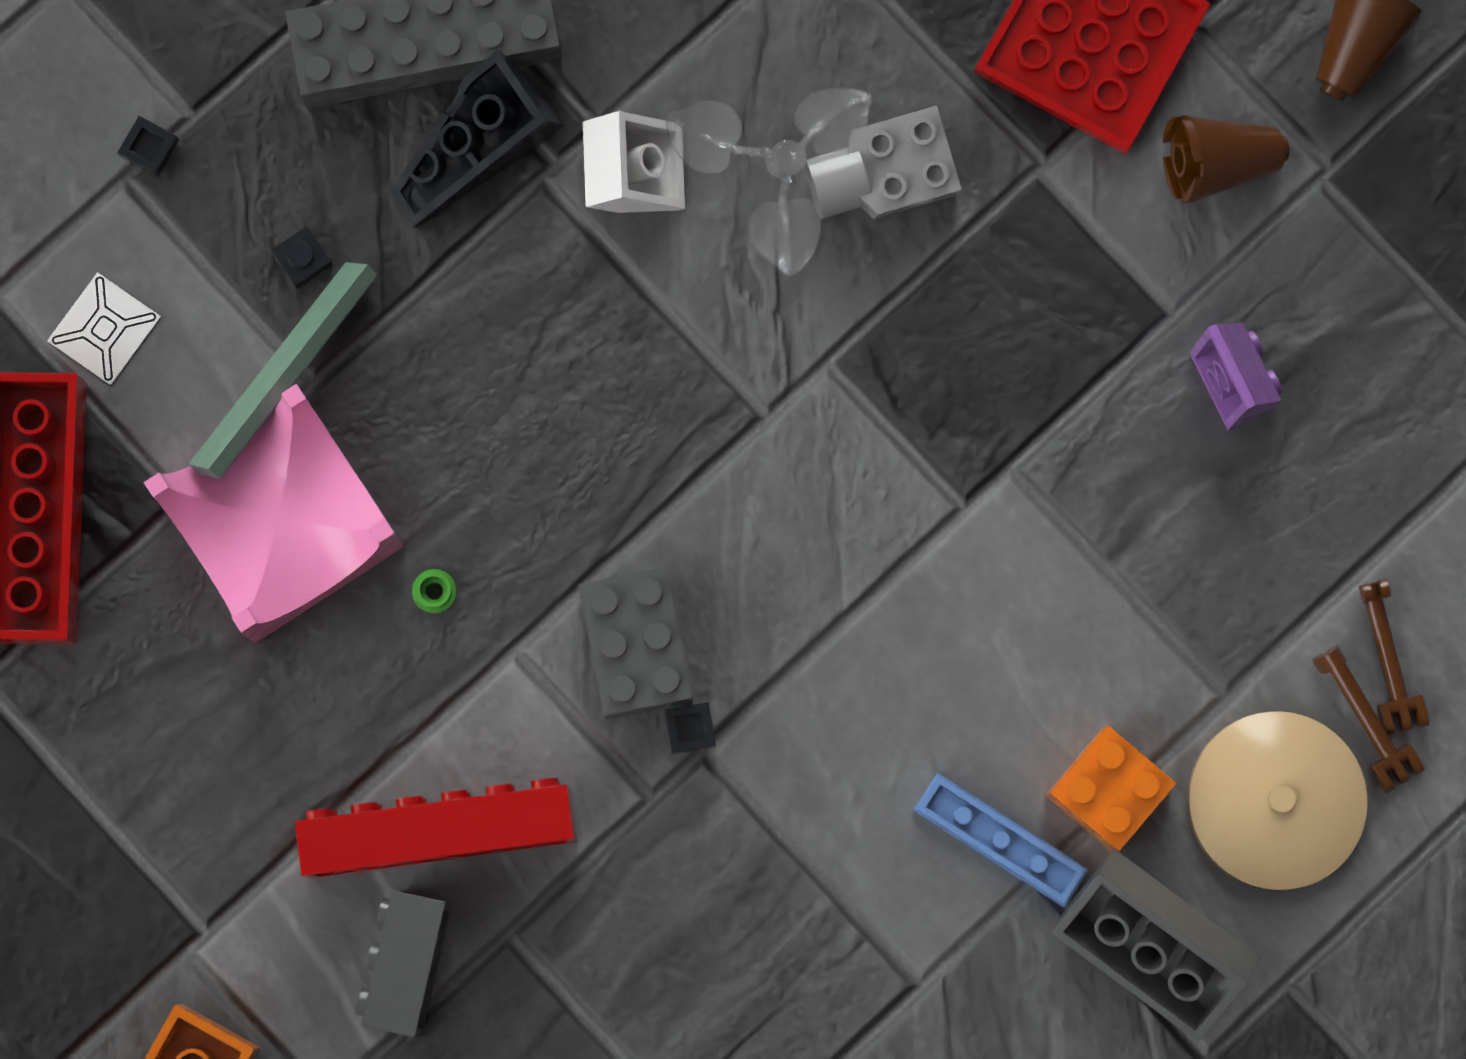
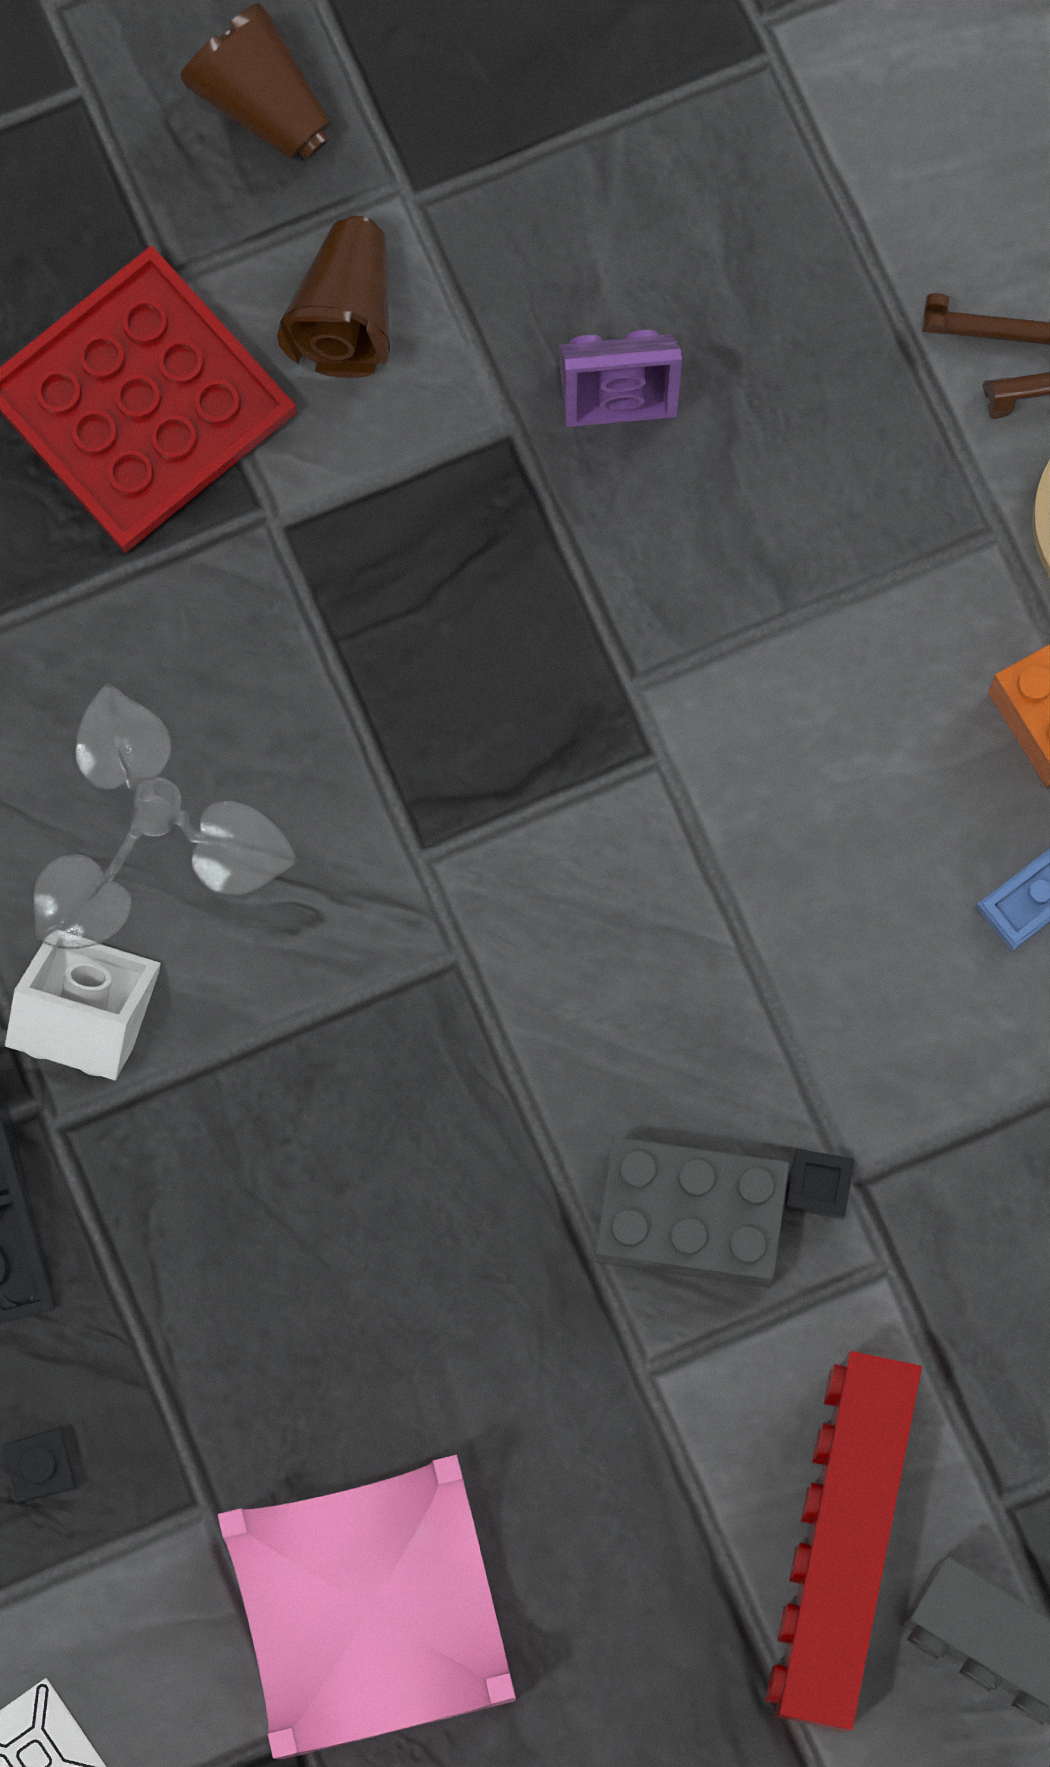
camera: 65 degrees left, 5 degrees down
(282, 370) = (183, 1536): sand green tile -> none
(430, 577) = (528, 1426): bright green plate -> none
(886, 168) = (208, 695): light grey brick -> none

